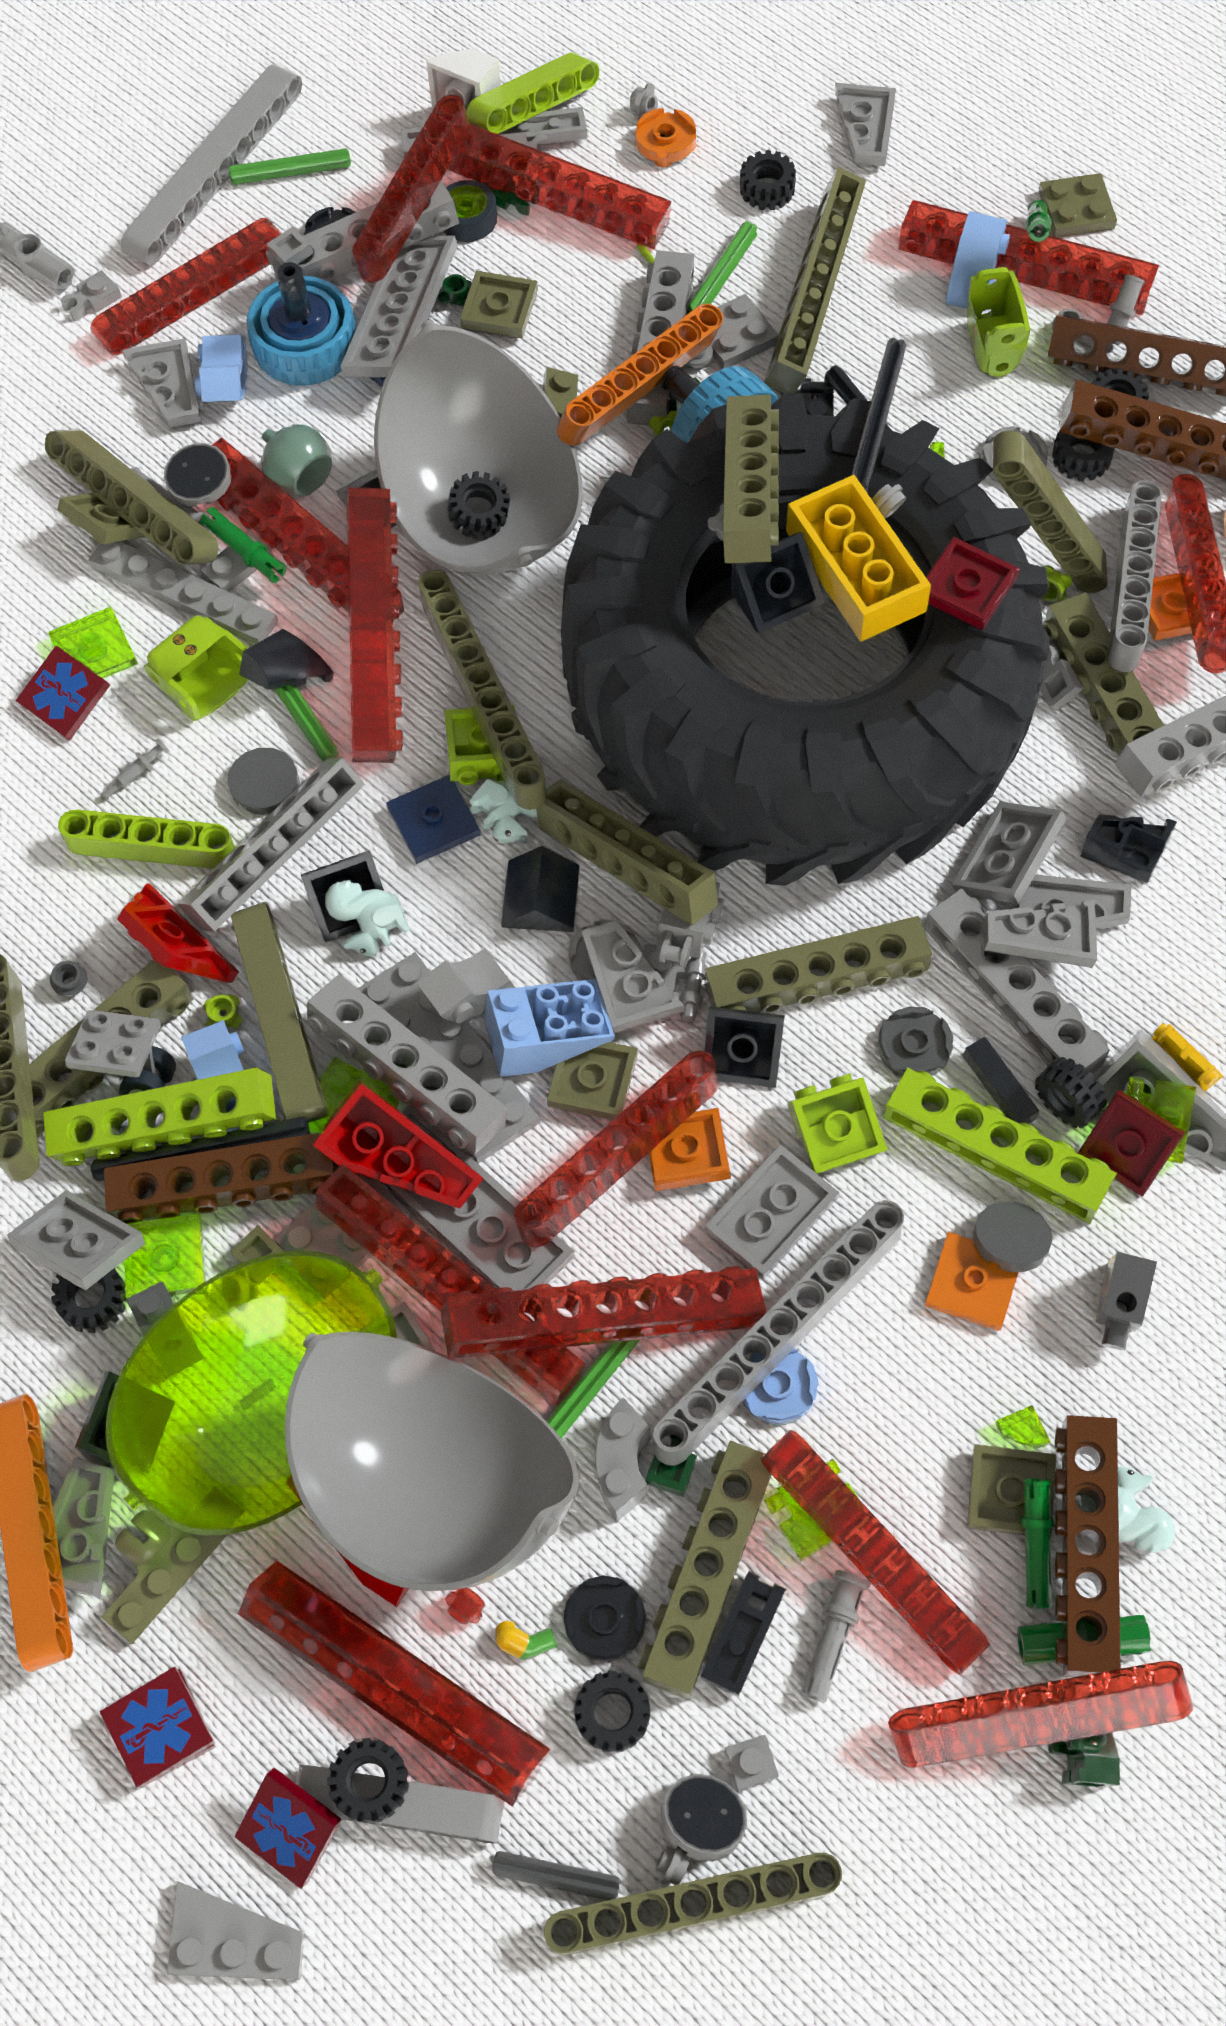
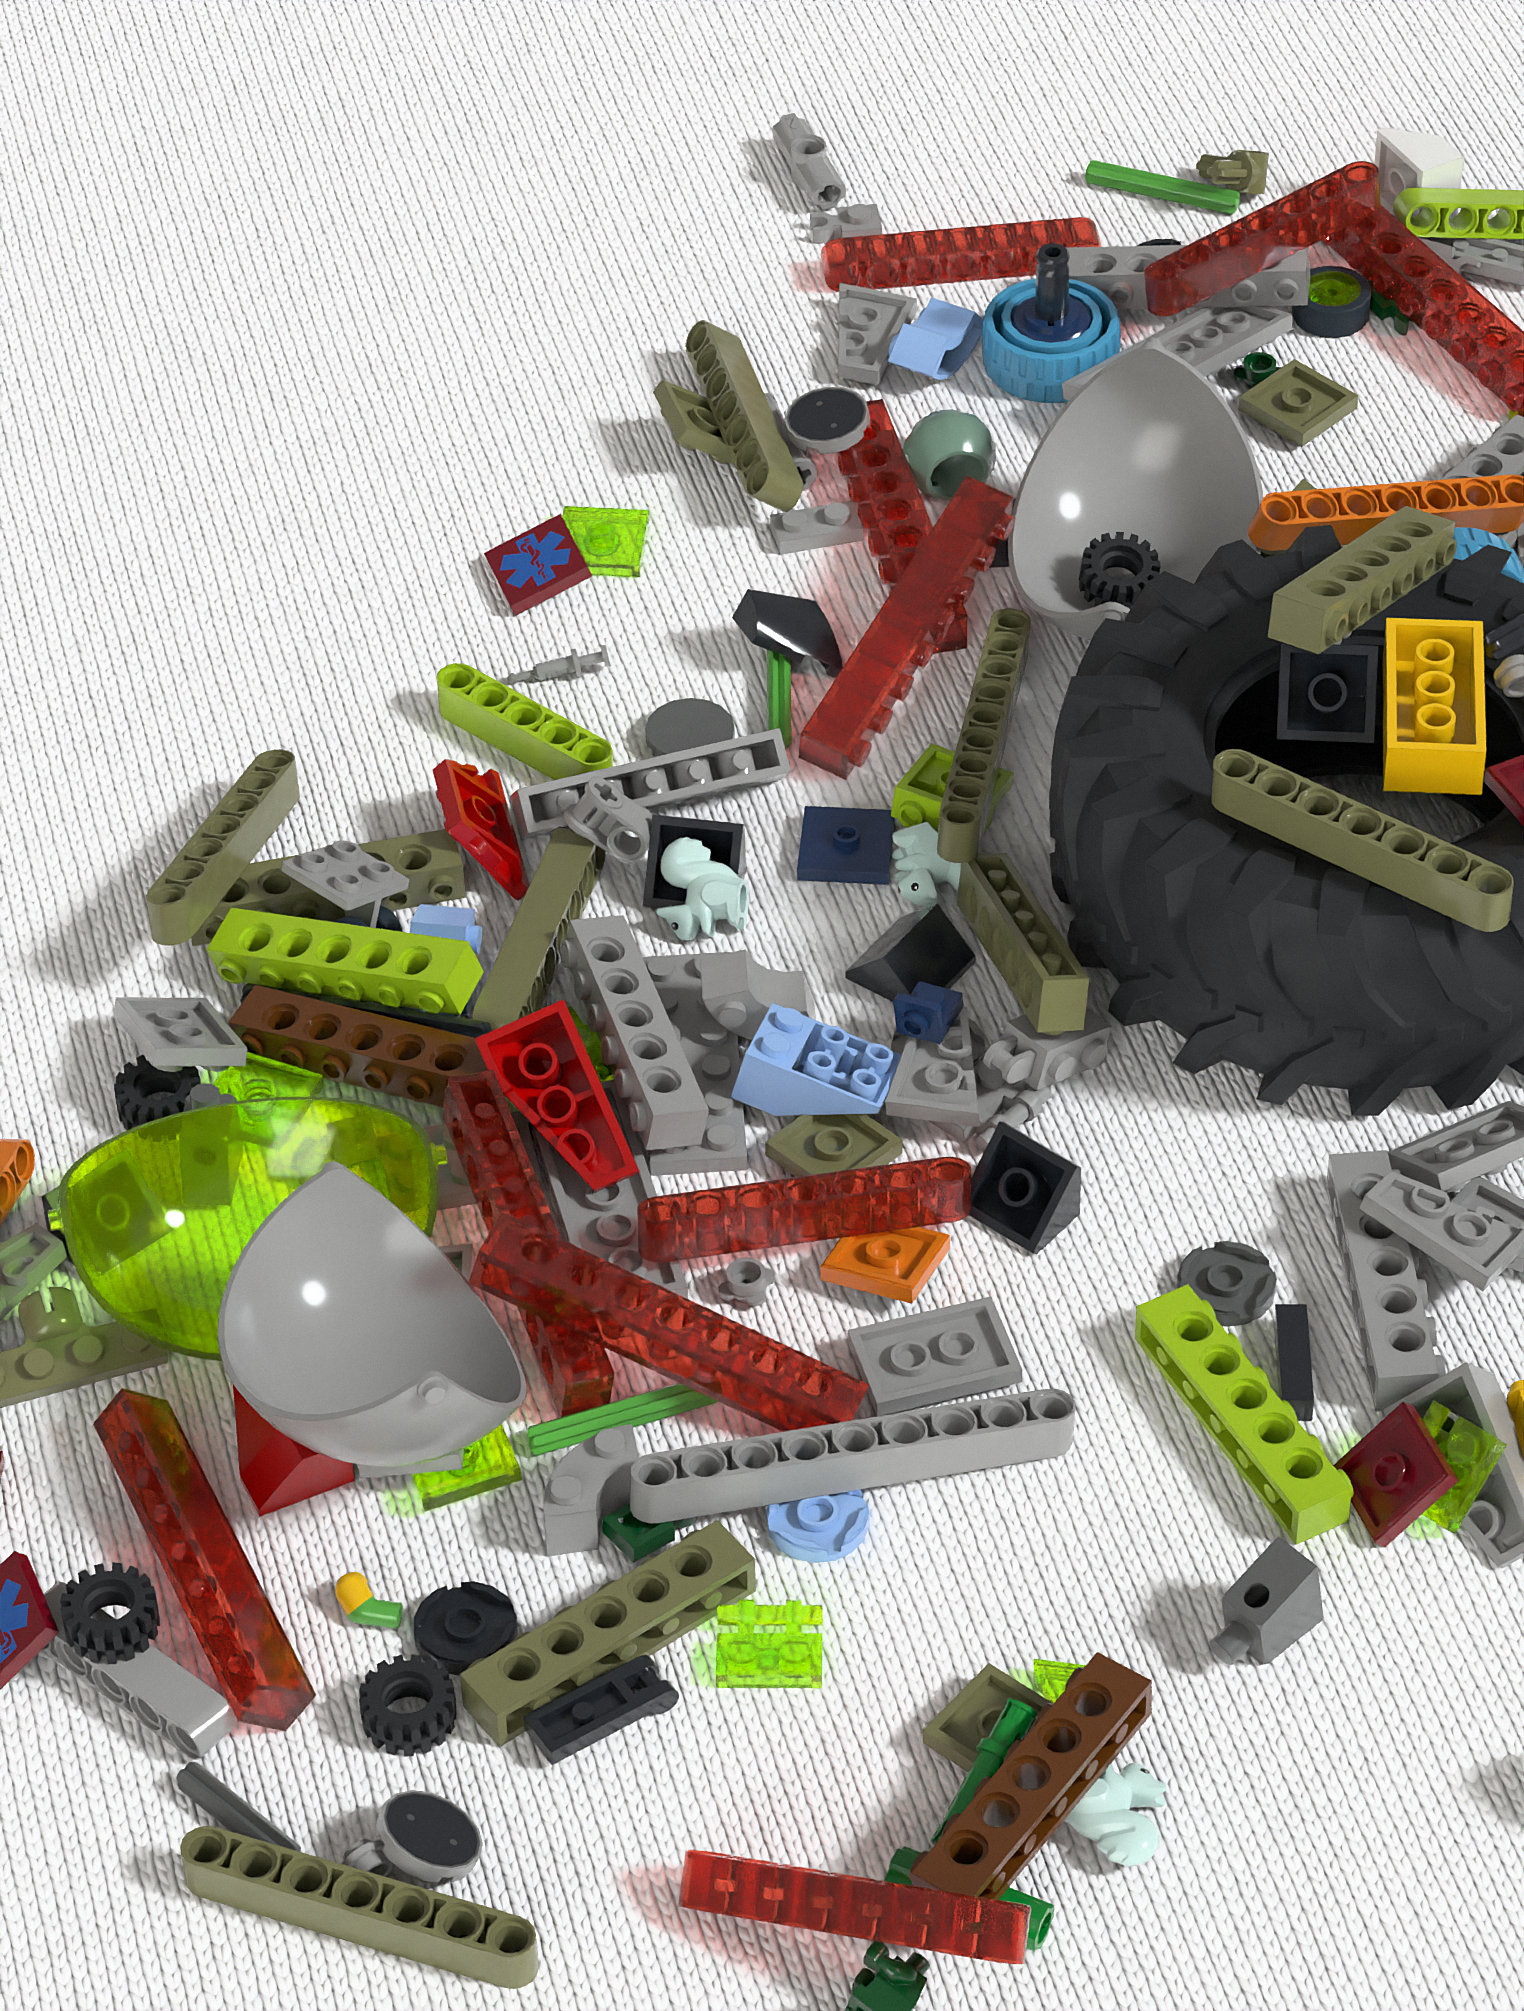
camera: 30 degrees right, 20 degrees down
(65, 970) = (349, 817): dark grey plate -> none
(183, 591) = (735, 525): light grey plate -> none
(197, 666) = (694, 598): lime piece -> none
(209, 165) = (1066, 152): light grey beam -> none
(223, 1003) = (489, 915): lime plate -> none
(253, 552) = (833, 517): green pin -> none
(276, 894) = (609, 819): none -> light grey piece
(290, 247) = (1087, 249): light grey plate -> none
(338, 132) = (1240, 170): none -> olive axle
(465, 1606) = (328, 1539): clear red plate -> none
(596, 940) = (927, 1012): none -> dark blue bracket
(610, 1210) = (746, 1281): none -> light grey plate
(751, 1762) = (519, 1828): light grey plate -> none
(836, 1123) = (1070, 1306): lime plate -> none
(840, 1616) = (716, 1746): light grey pin -> none
(875, 1552) = (796, 1696): clear red beam -> none
(897, 686) = (1362, 840): none -> olive beam
(901, 937) = (1175, 1160): olive brick -> none
(970, 1285) = (1114, 1528): orange plate -> none
(1012, 1236) = (1188, 1501): dark grey tile -> none
(1070, 1092) = (1359, 1391): black tyre -> none

